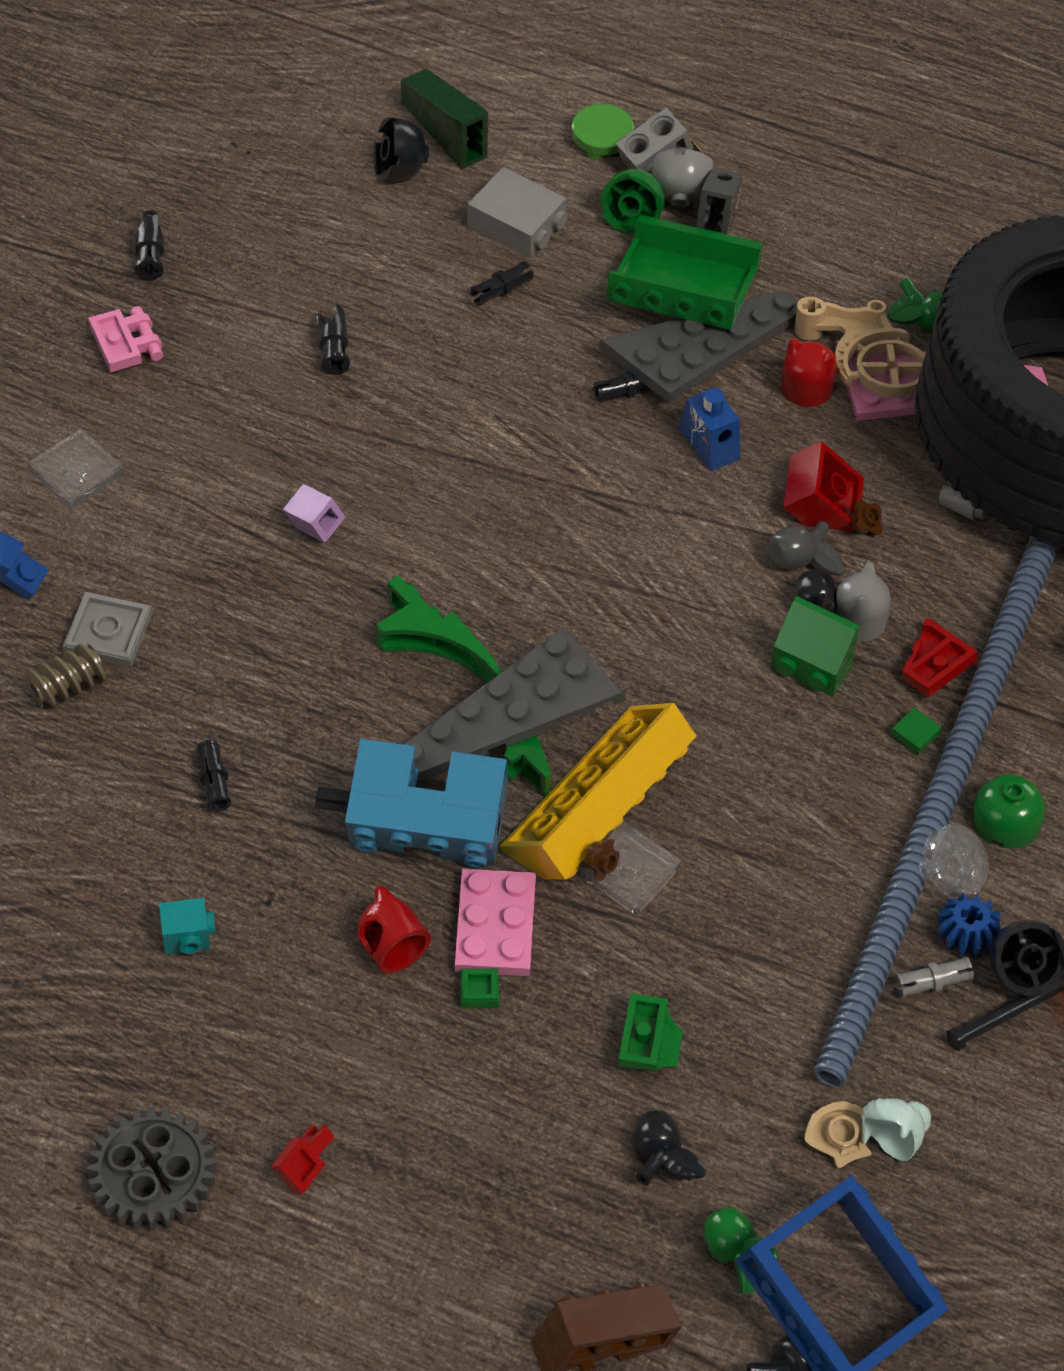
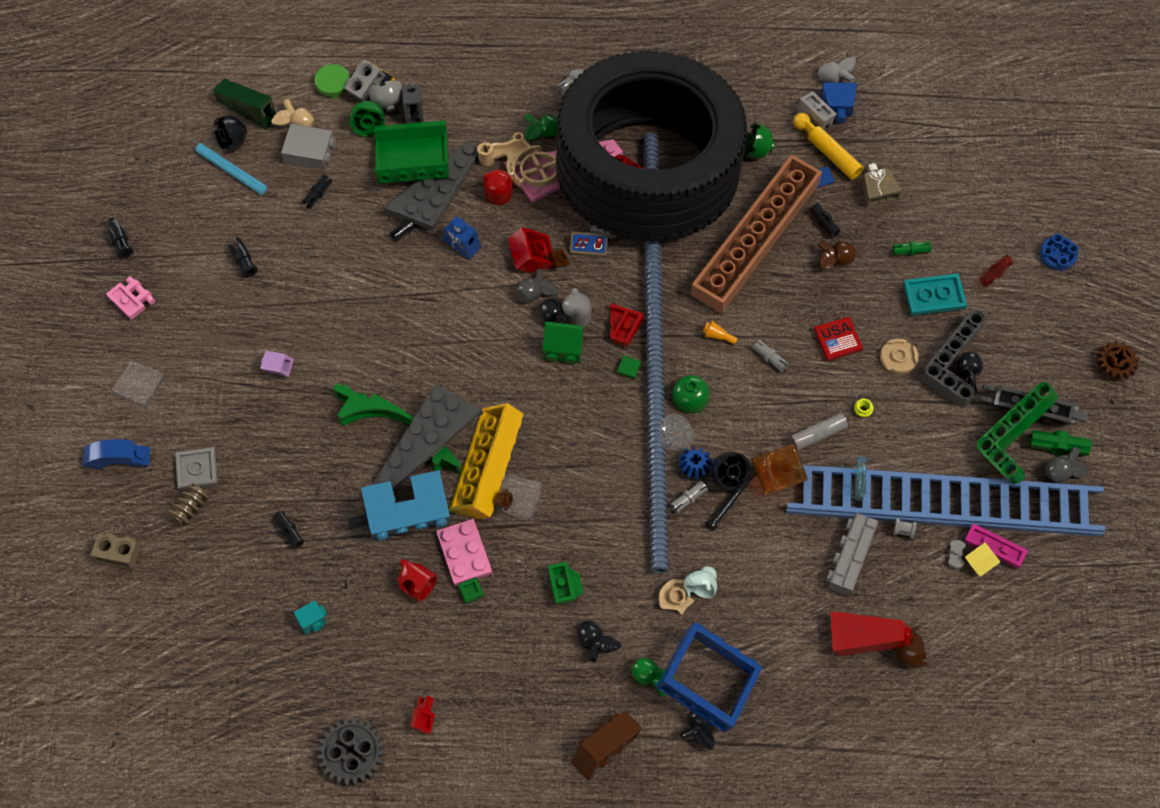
camera: 20 degrees left, 10 degrees up
(377, 206) = (231, 169): none -> medium azure axle
(523, 162) = (290, 116): none -> tan piece
(929, 513) = (589, 244): none -> slope

